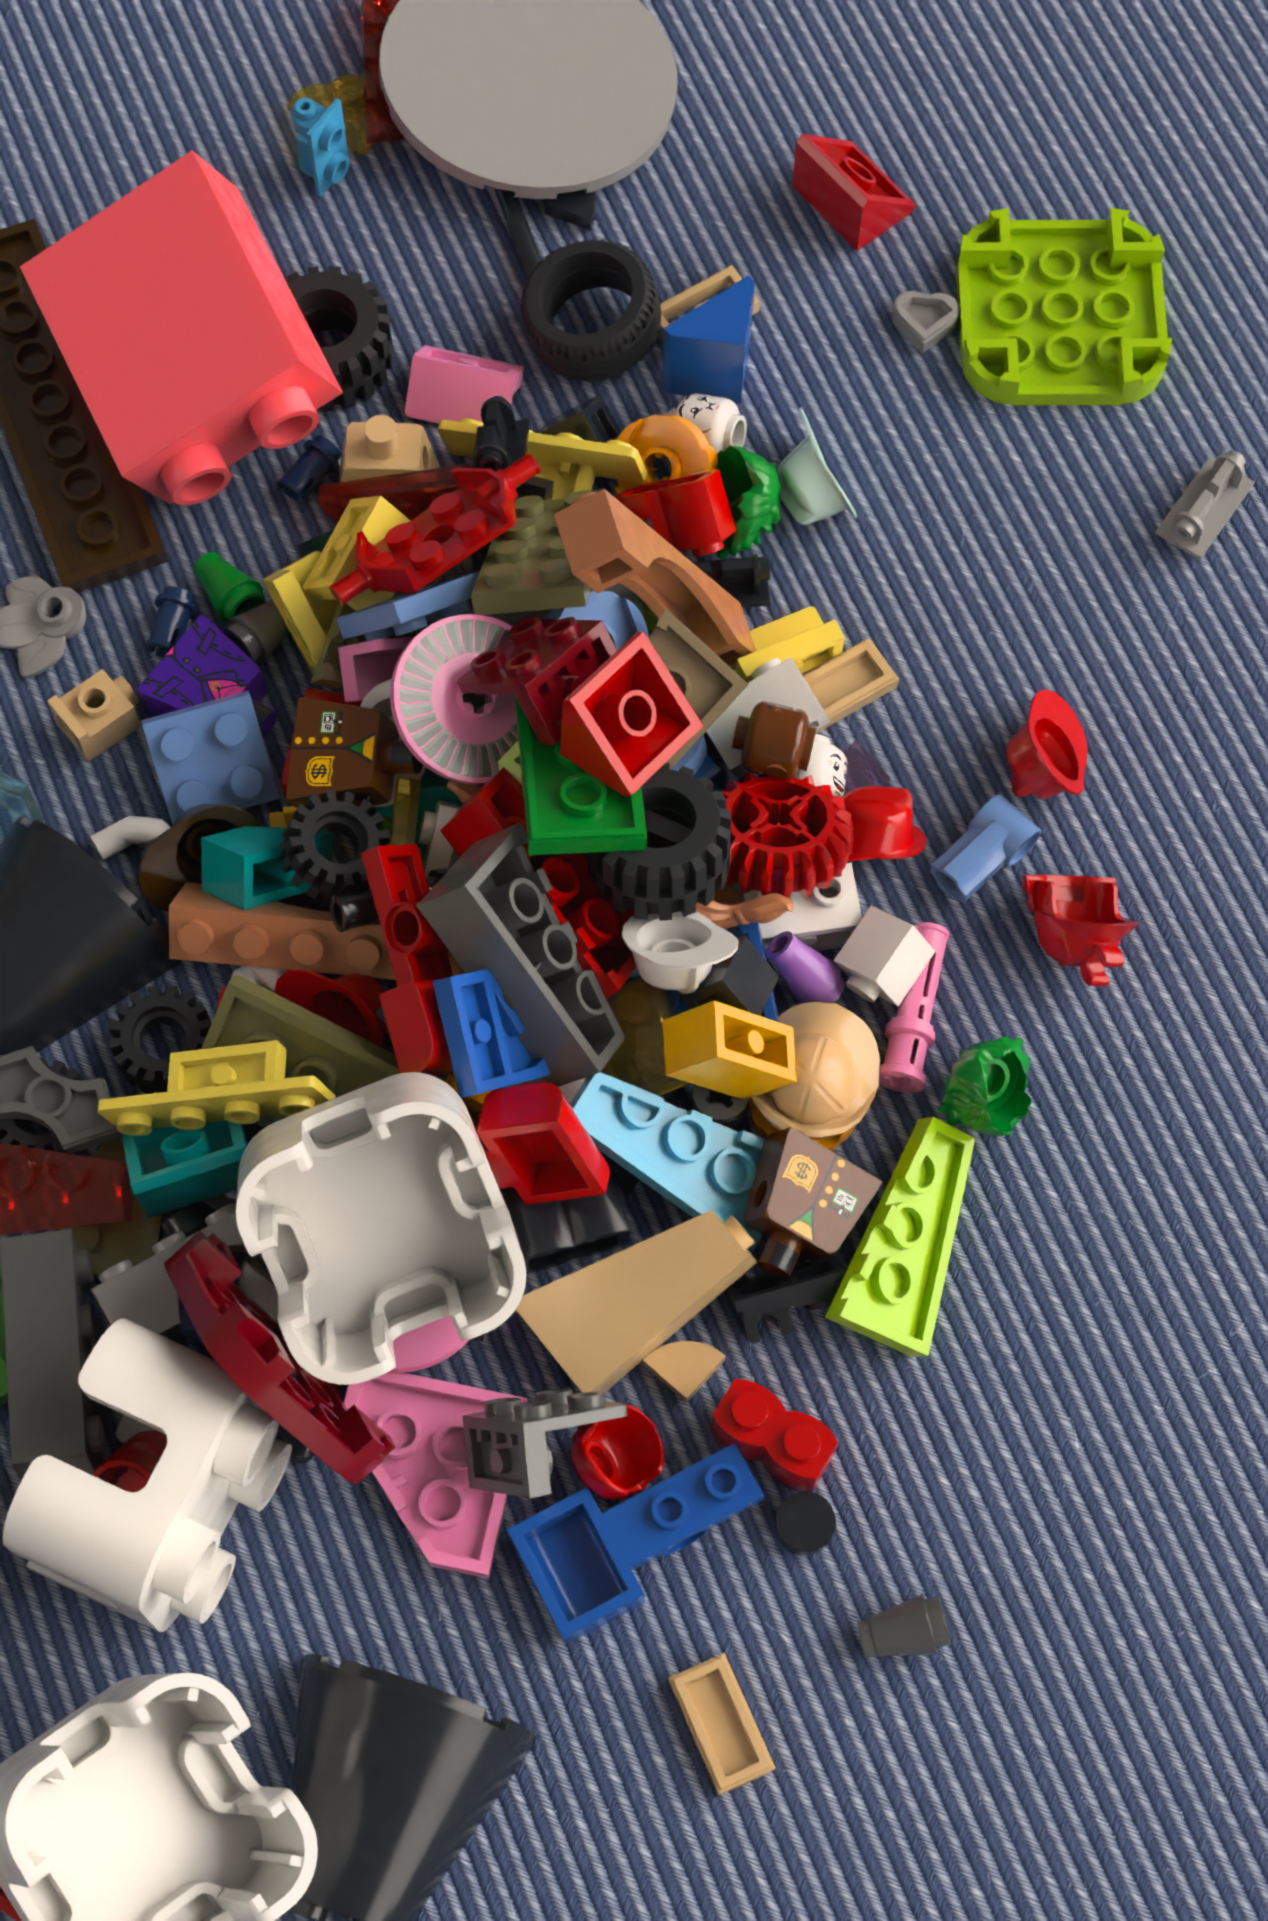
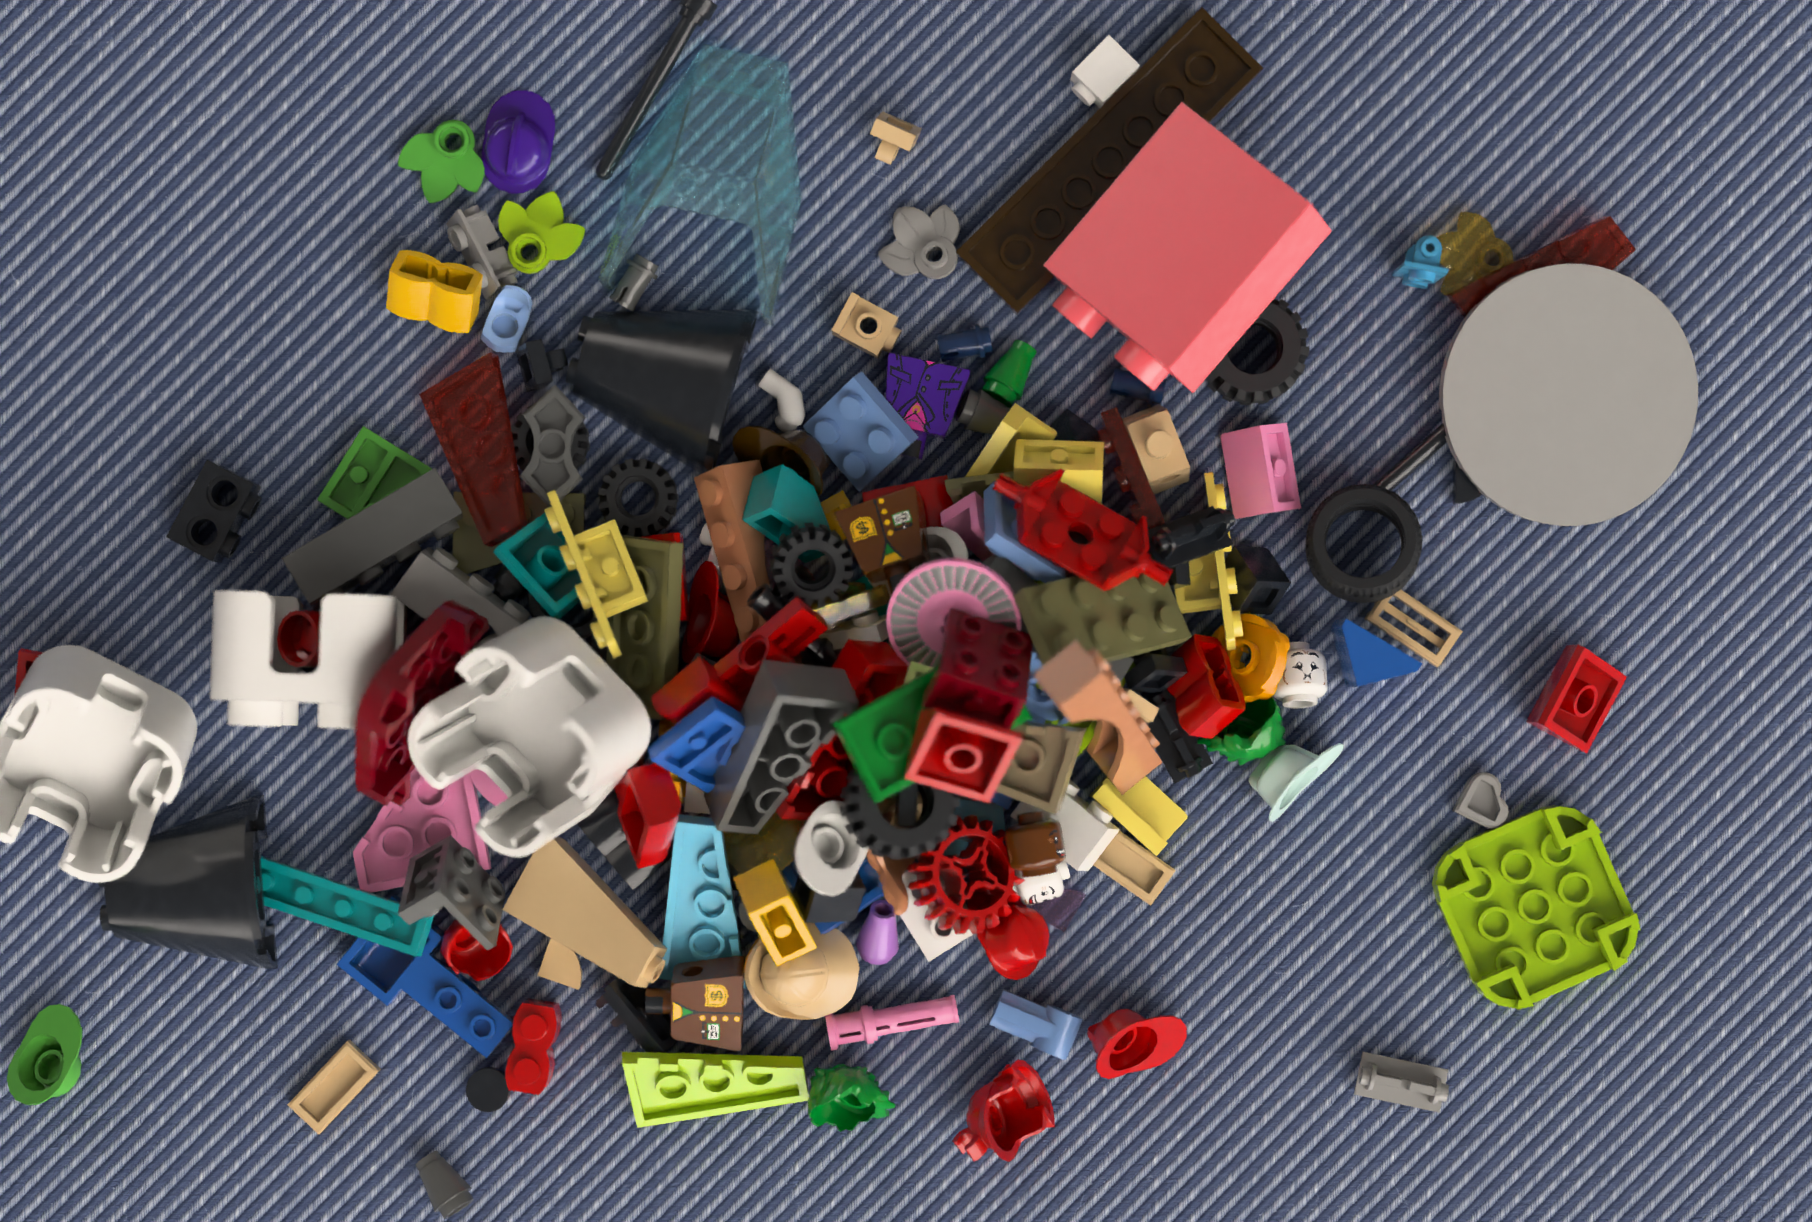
camera: 70 degrees right, 20 degrees up
(496, 1589) = (341, 907): none -> teal plate
(883, 957) = (910, 985): white brick -> none

